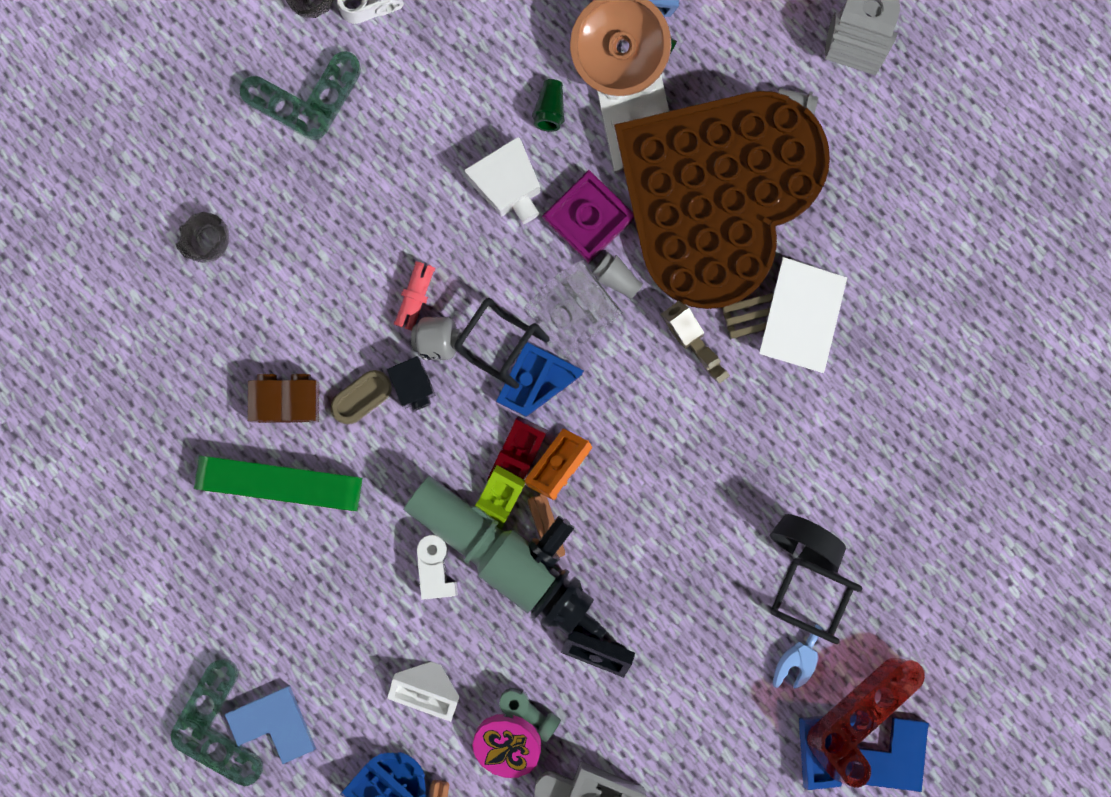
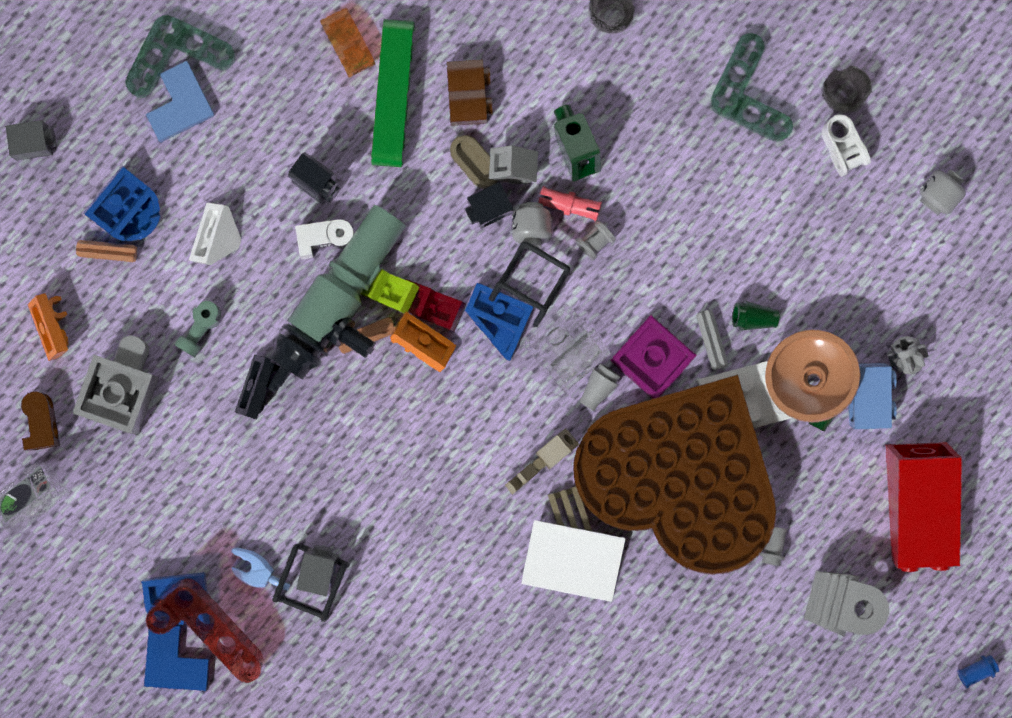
camera: 85 degrees right, 0 degrees up
(217, 531) = (347, 42): none -> clear orange slope
(360, 280) = (576, 147): none -> dark green torso
(368, 353) = (513, 164): none -> light grey brick
(370, 575) = (314, 178): none -> black brick
(456, 270) = (595, 240): none -> light grey bush
(507, 181) = (681, 281): white torso -> none
(507, 746) = (169, 310): dark pink tile -> none
(572, 153) = (712, 339): none -> light grey axle
(804, 592) = (317, 570): none -> dark grey brick
(821, 545) = (359, 580): black tyre -> none

